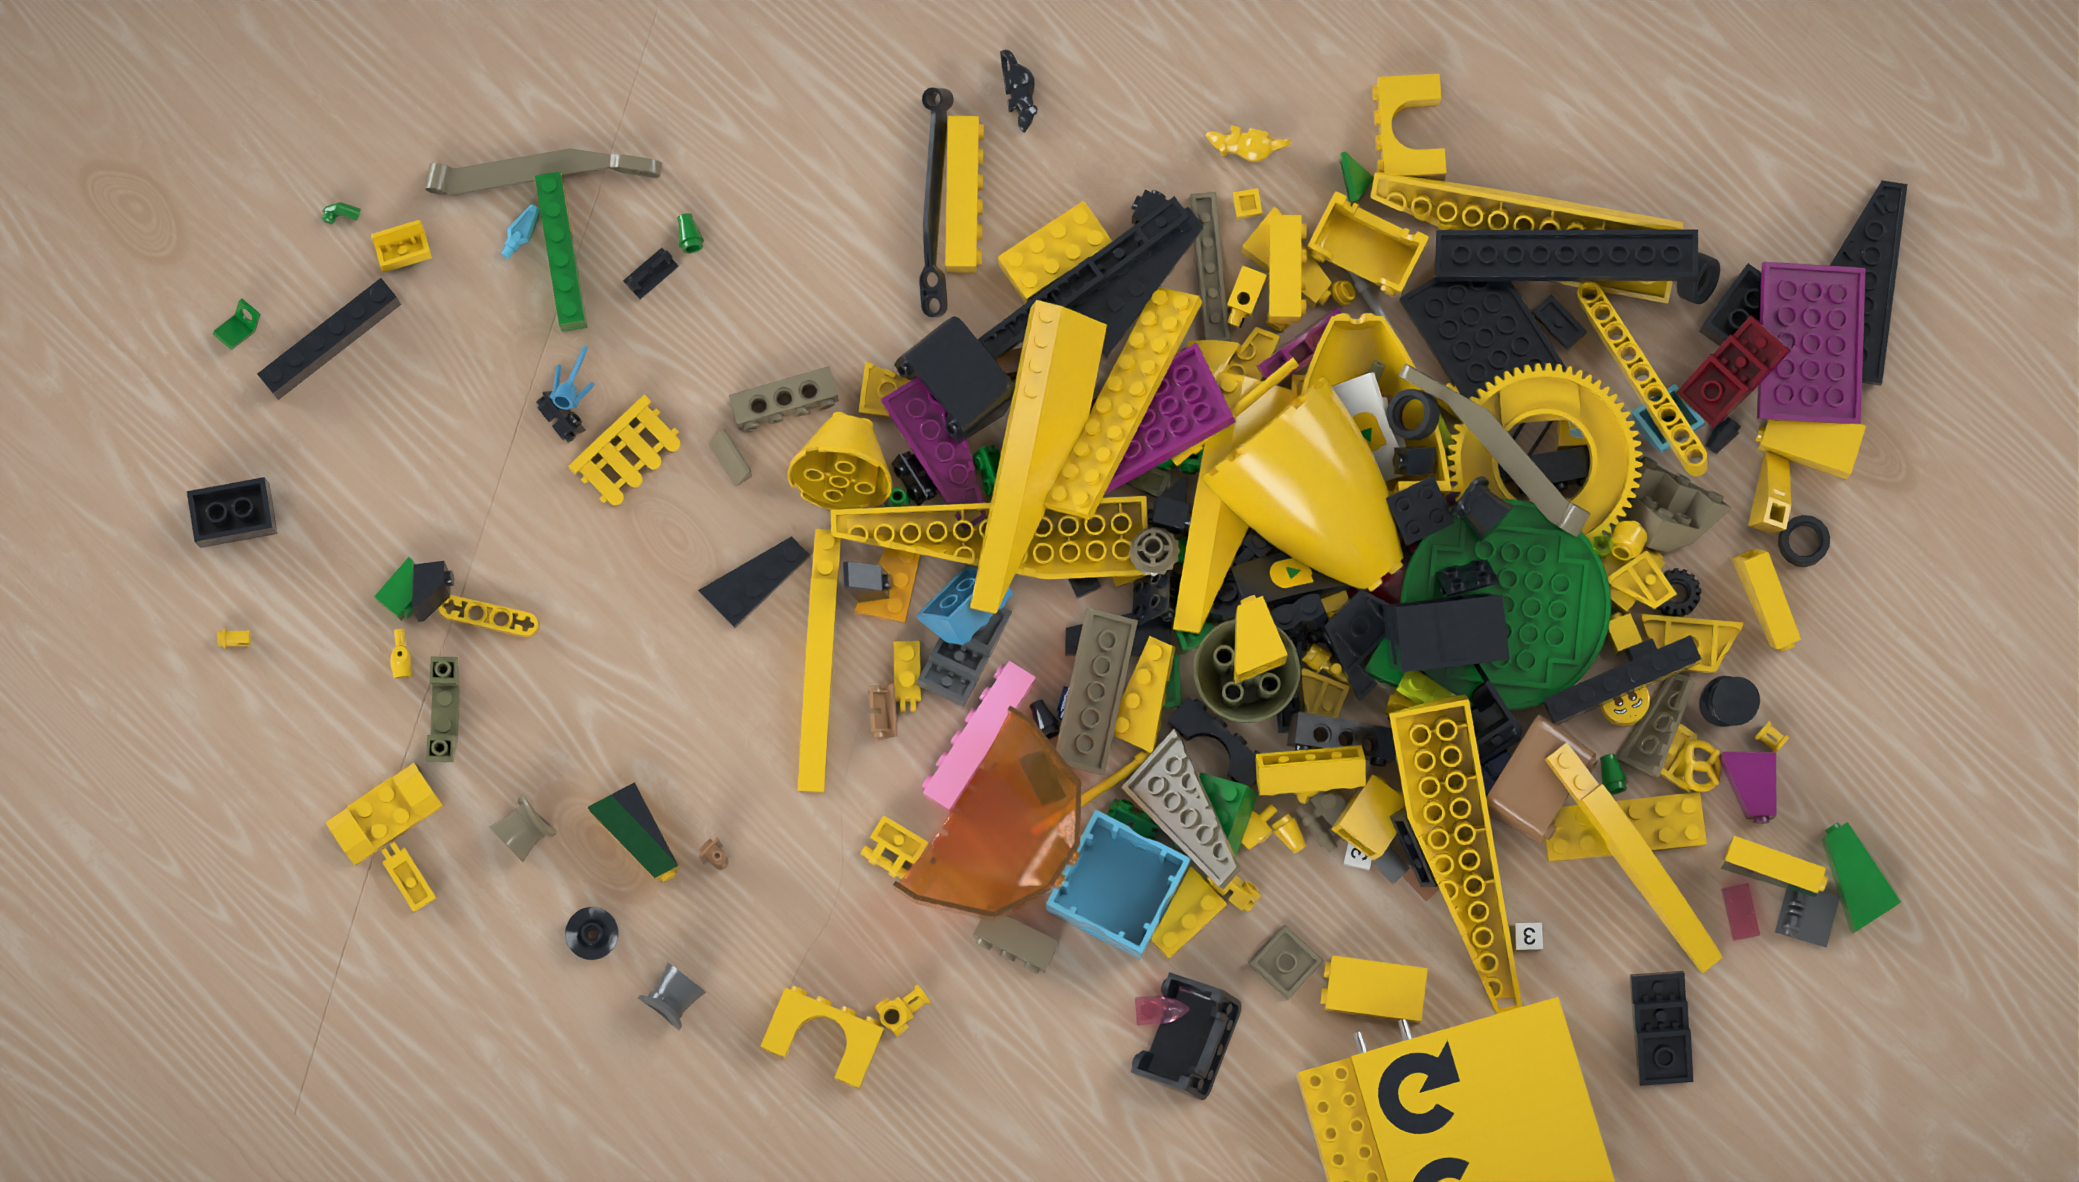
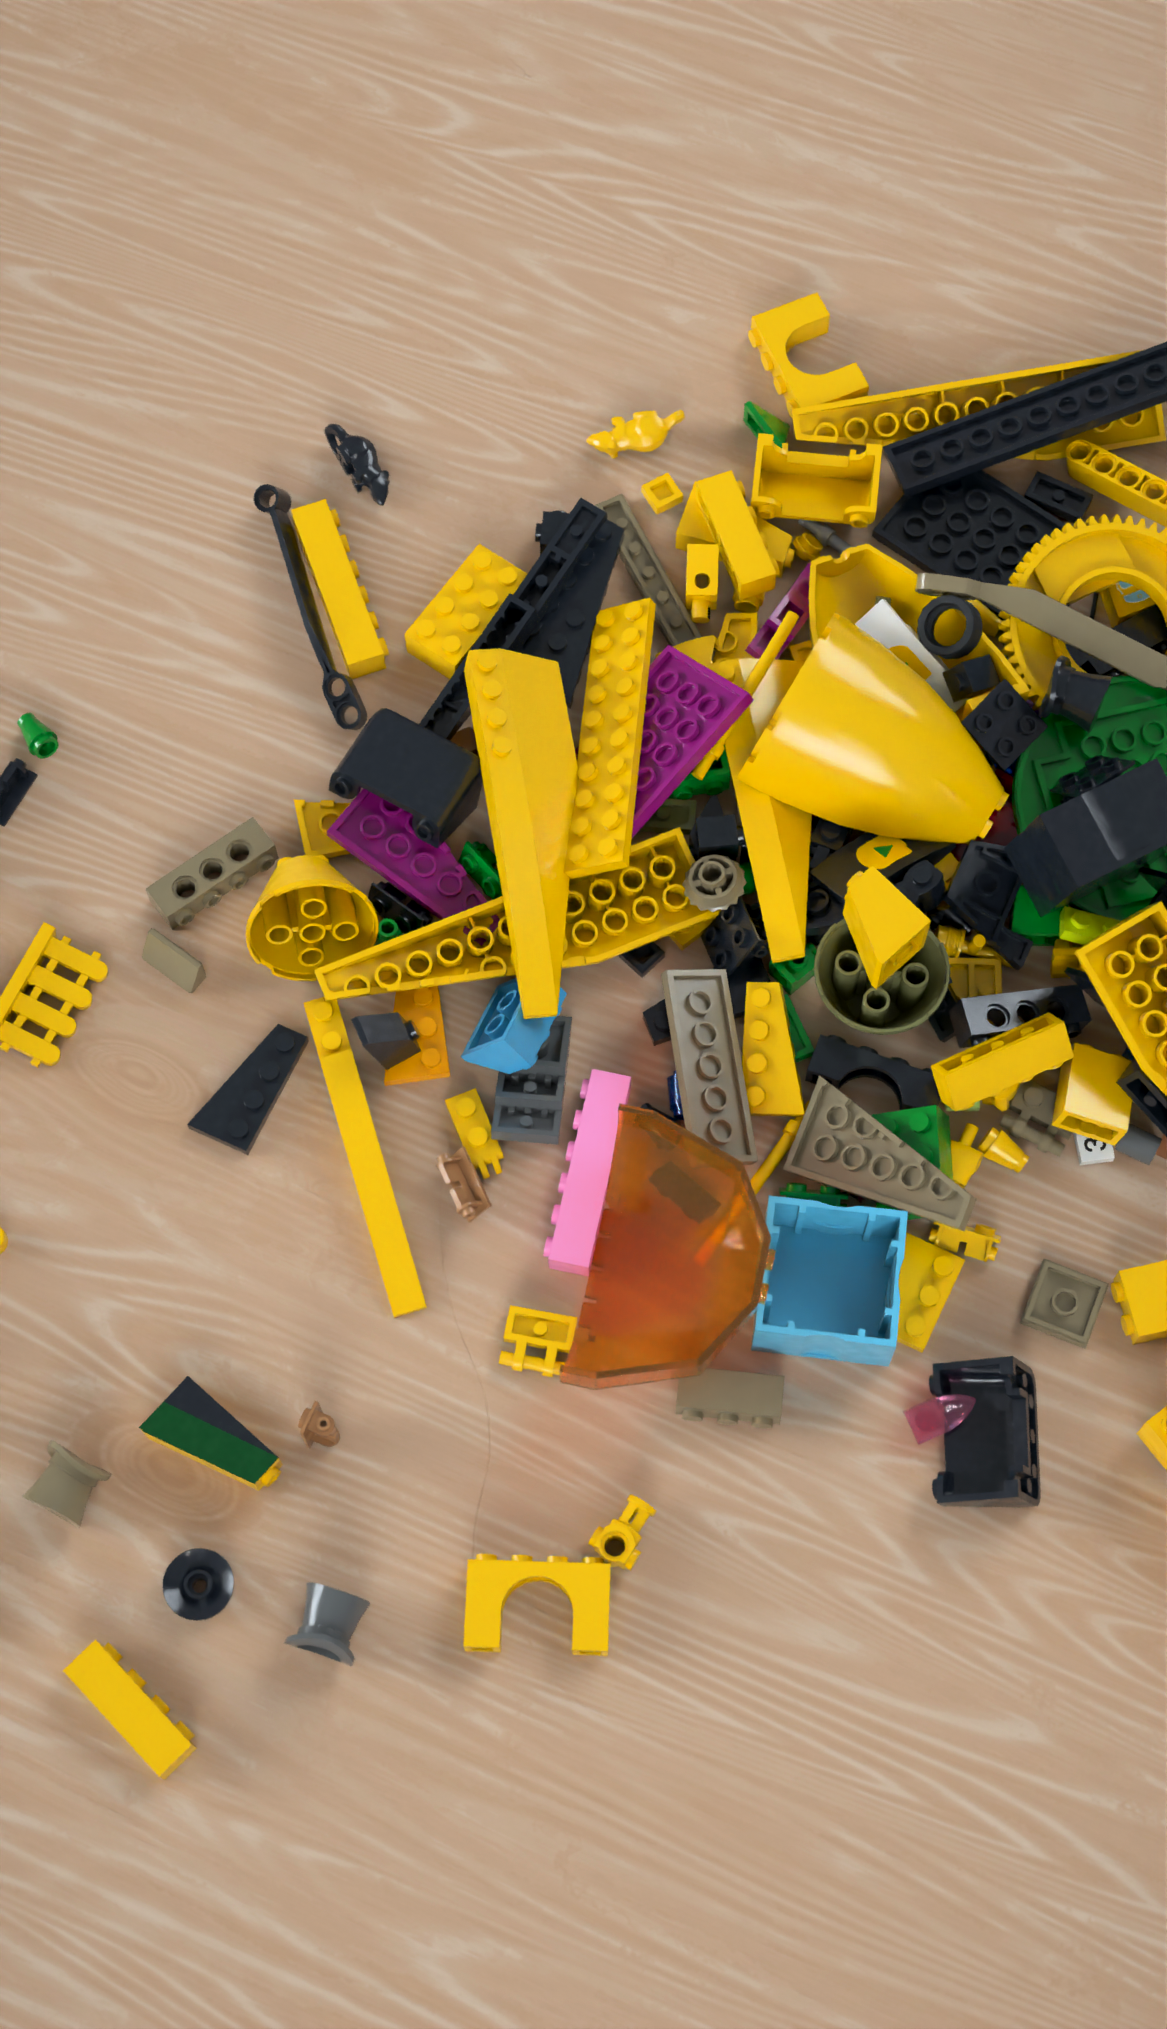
camera: 20 degrees left, 10 degrees down
(515, 1002) = (130, 1709): none -> yellow brick

